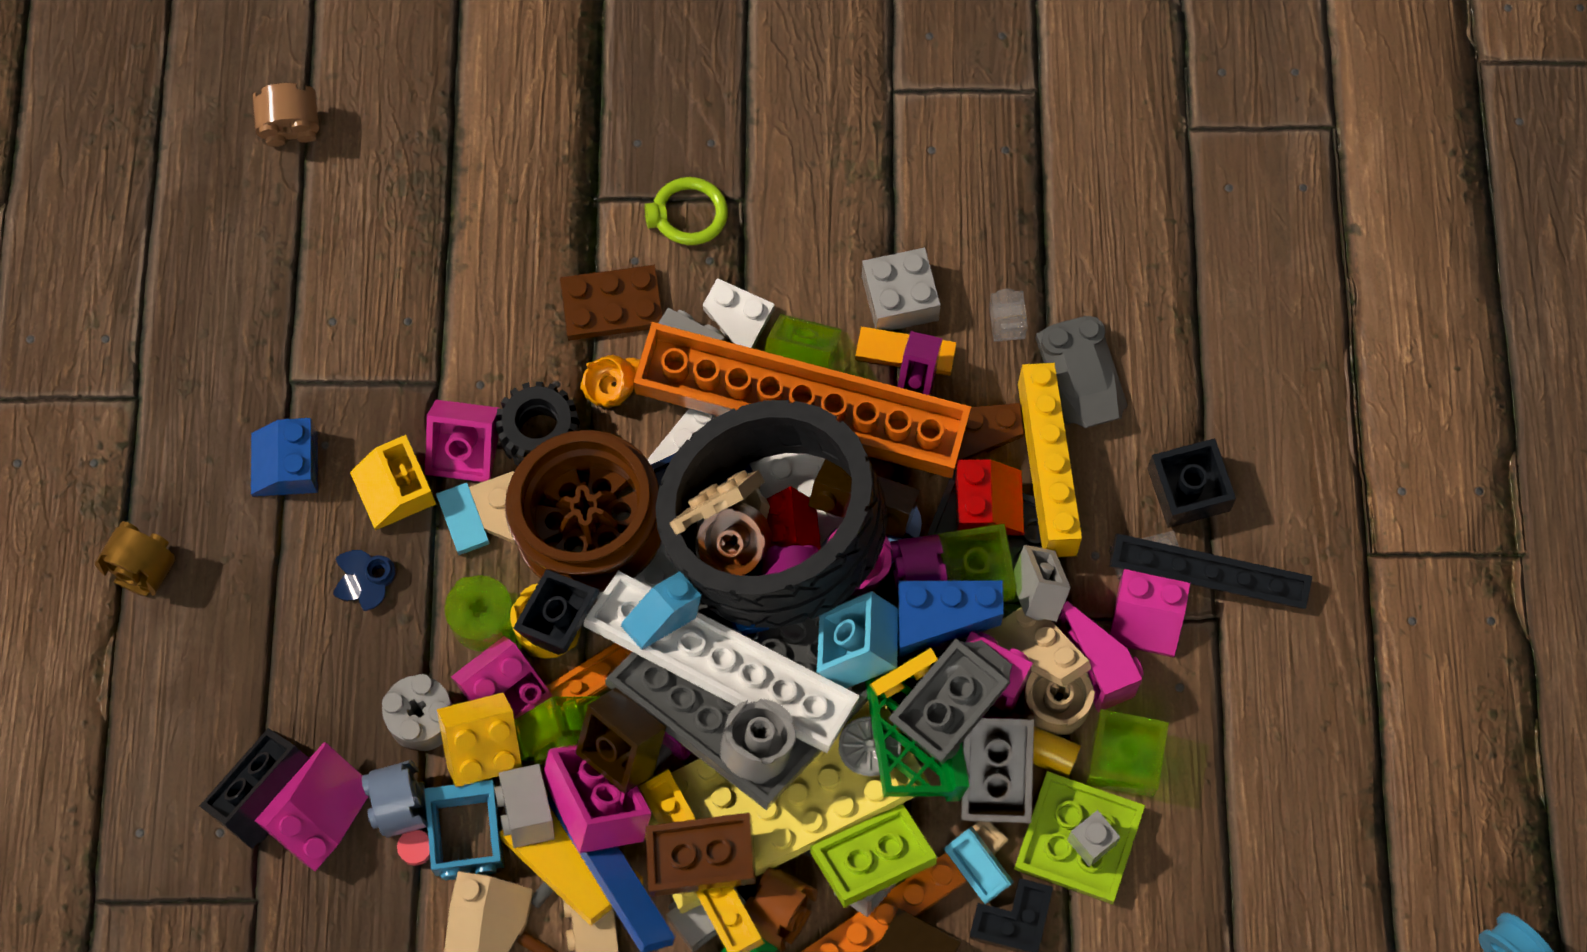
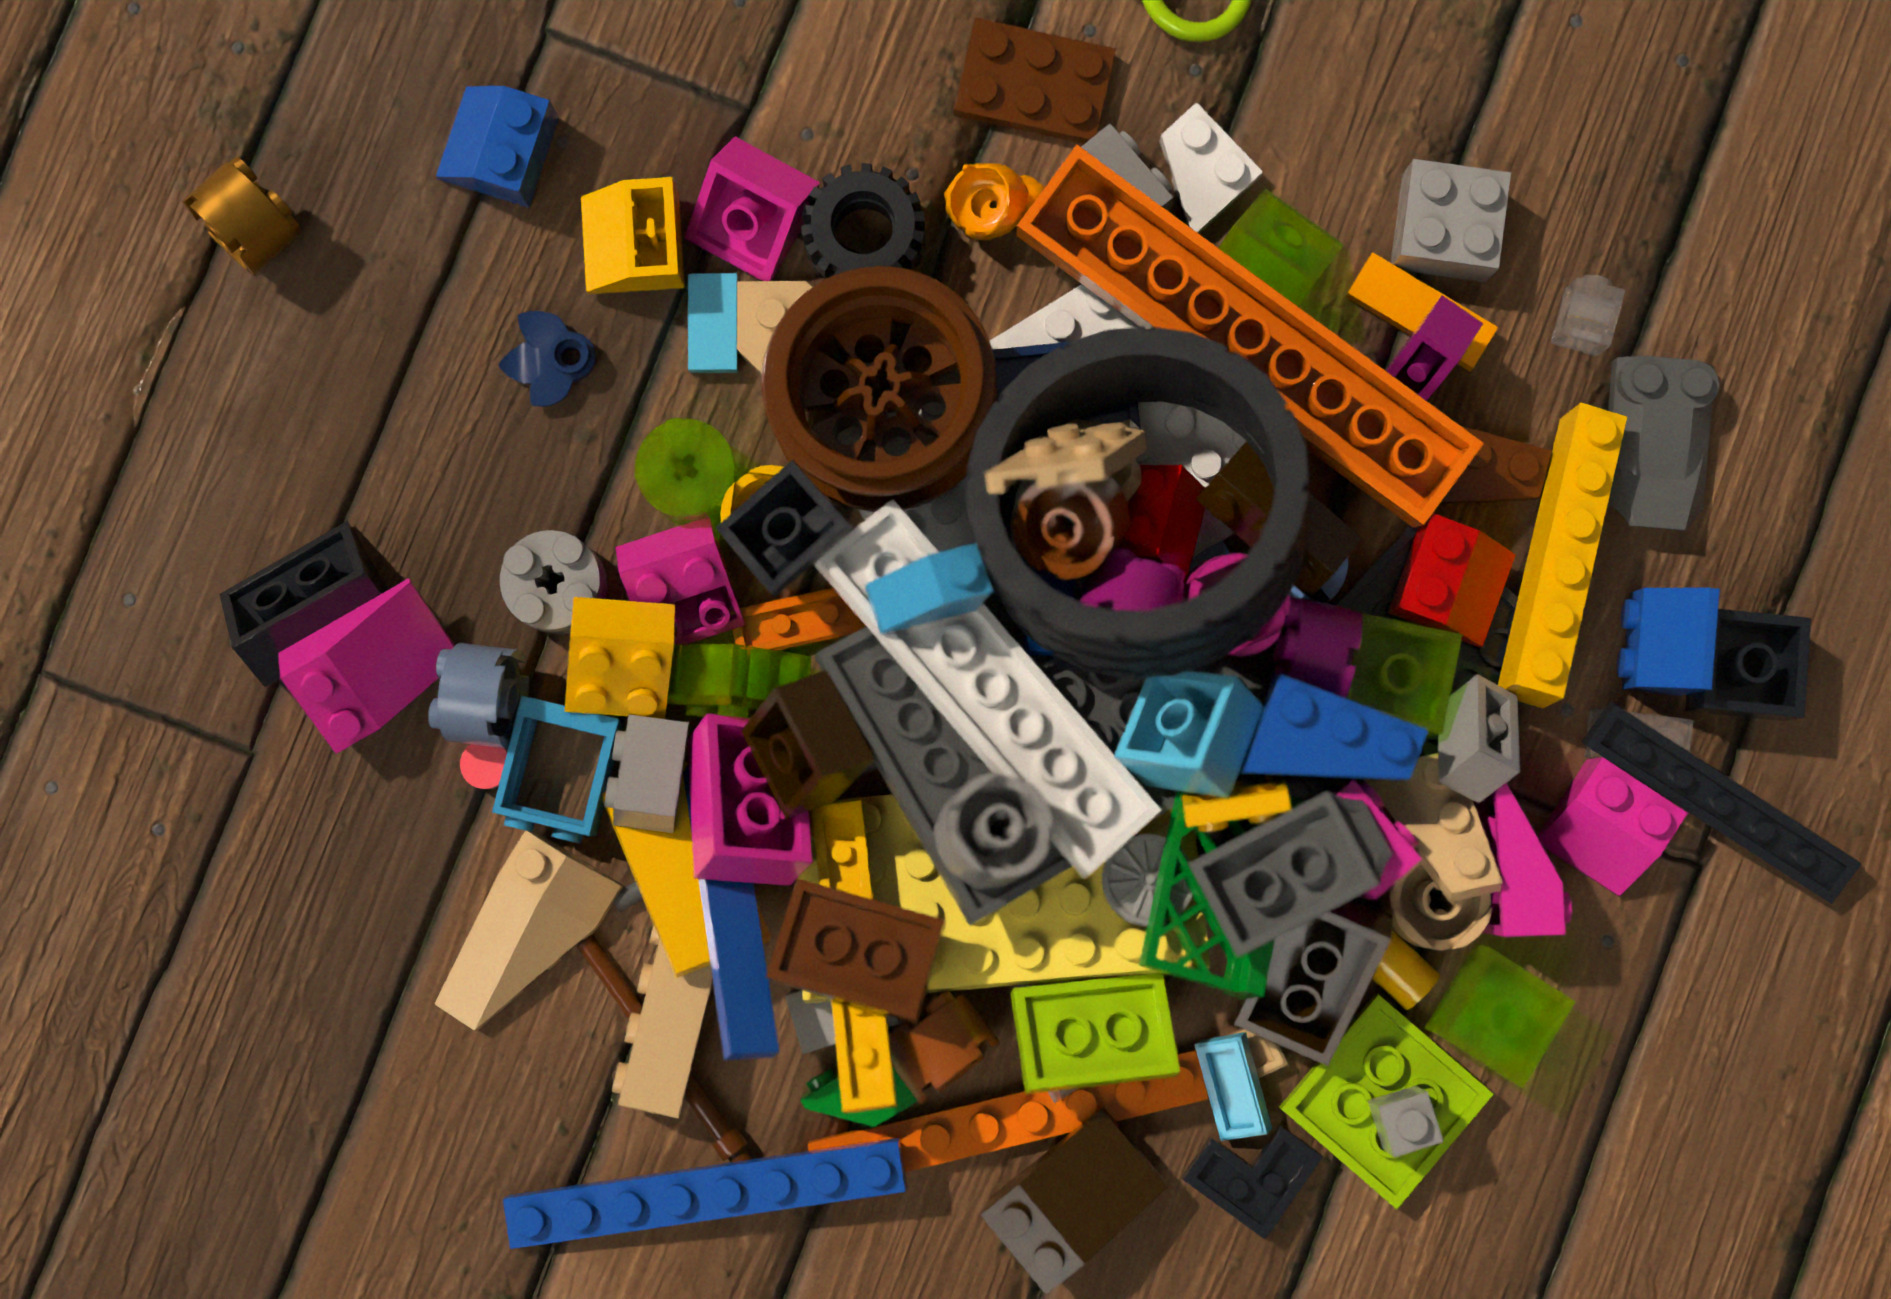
camera: 20 degrees right, 15 degrees up
(1136, 486) = (1669, 640): none -> blue slope

